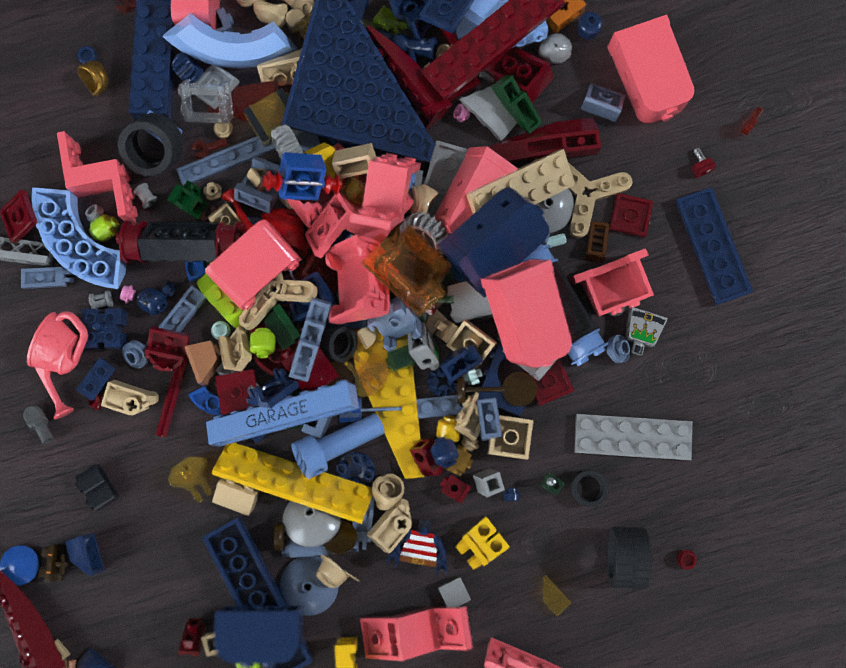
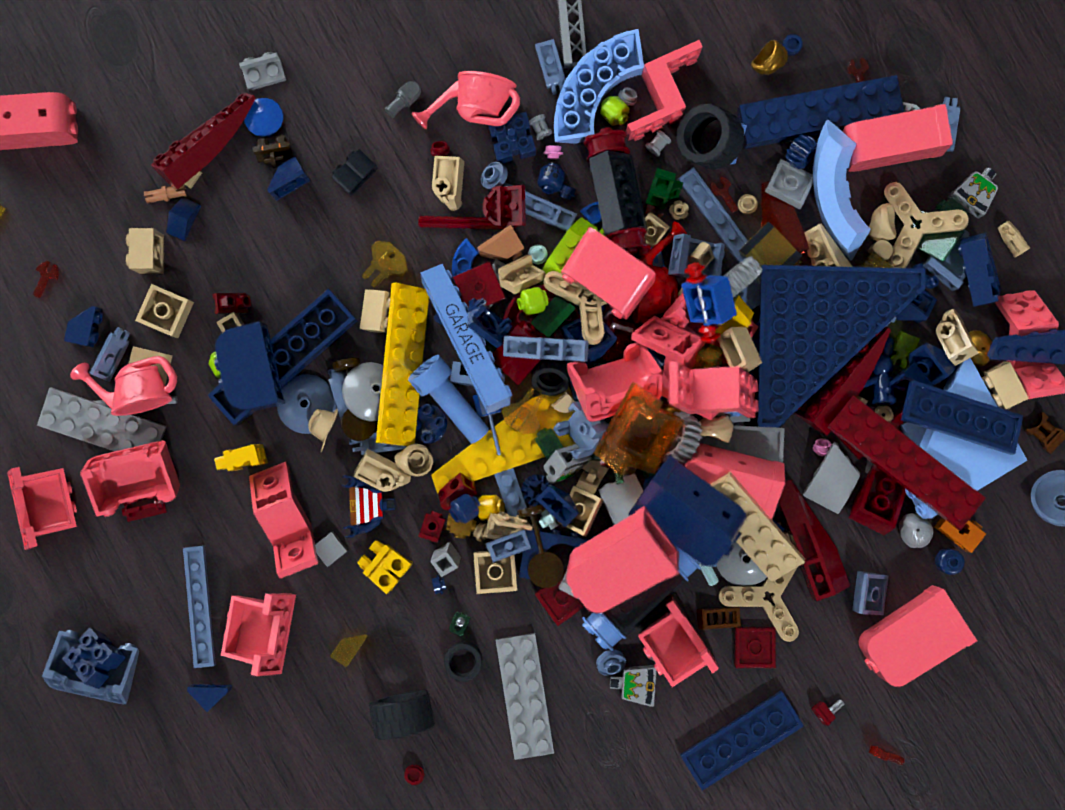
camera: 80 degrees right, 5 degrees up
(18, 216) = (606, 22): dark red plate -> none
(96, 379) = (460, 144): dark blue bracket -> none
(220, 90) = (783, 194): clear panel -> none
(226, 20) = (863, 179): sand blue bracket -> none
(517, 103) = (844, 503): dark green slope -> none

